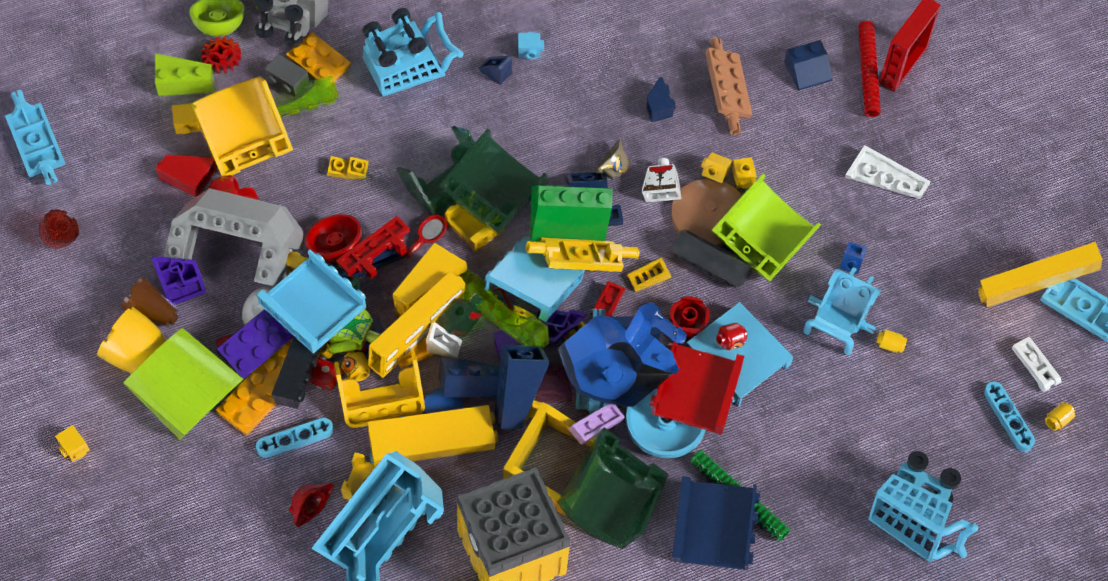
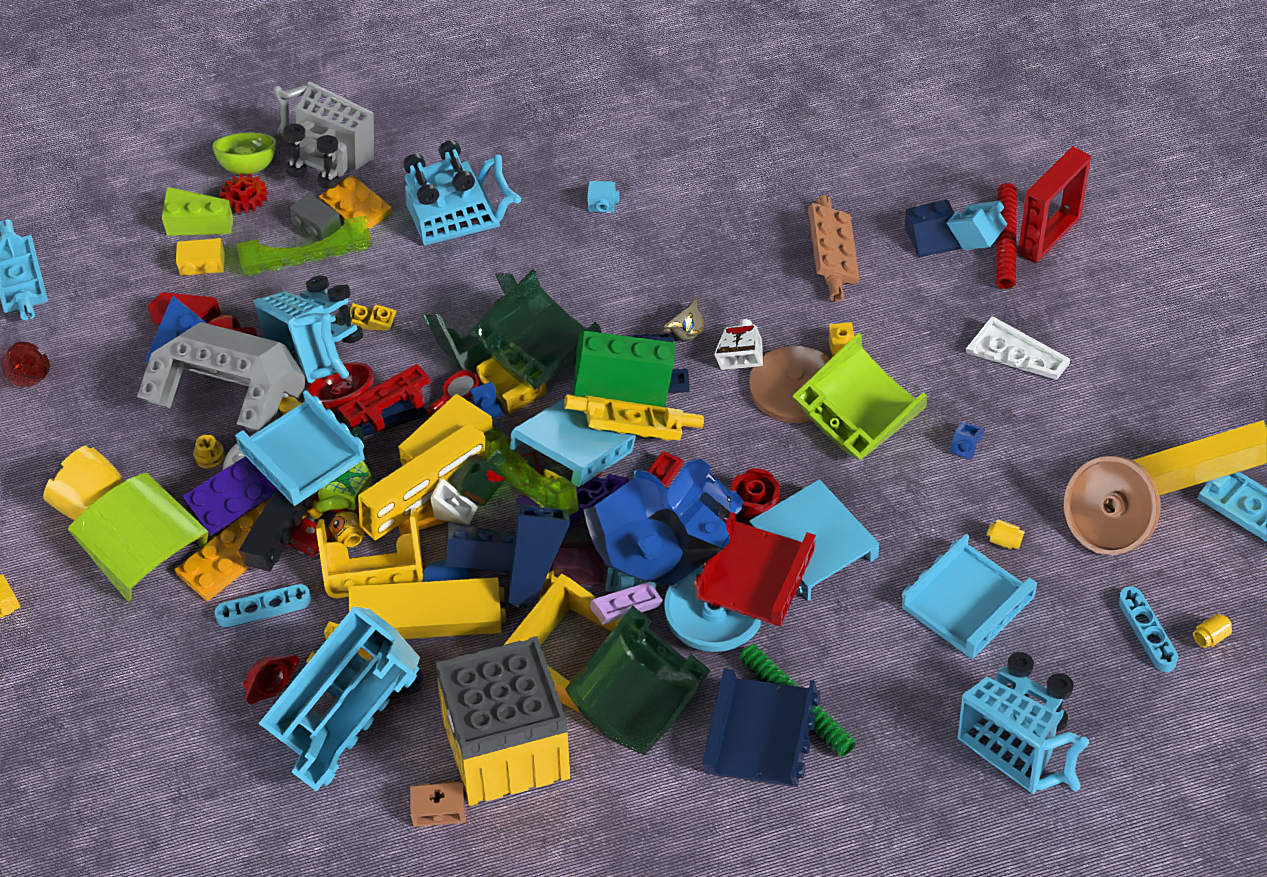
camera: 10 degrees right, 10 degrees down
(150, 303) = (117, 447): reddish brown cone -> none
(179, 278) = (153, 421): dark purple slope -> none
(183, 188) = (176, 321): none -> blue wing
(224, 299) = (203, 449): none -> yellow piece
(241, 125) = (250, 262): yellow windscreen -> none
(304, 185) = (308, 326): none -> medium azure piece
(456, 244) = (486, 399): none -> blue bracket
(497, 68) = (562, 219): dark blue slope -> none
(659, 103) = (747, 261): dark blue slope -> none
(659, 263) = (717, 454): yellow slope -> none
(712, 258) = (791, 430): black brick -> none
(716, 167) = (808, 333): yellow brick -> none
(731, 336) = (804, 514): red head -> none
(844, 307) = (947, 491): medium azure piece -> none
(846, 61) = (978, 225): none -> medium azure plate
(865, 398) = (966, 597): none -> medium azure panel
(976, 315) = (1112, 505): none -> nougat dish
(1036, 363) = (1187, 569): white plate -> none

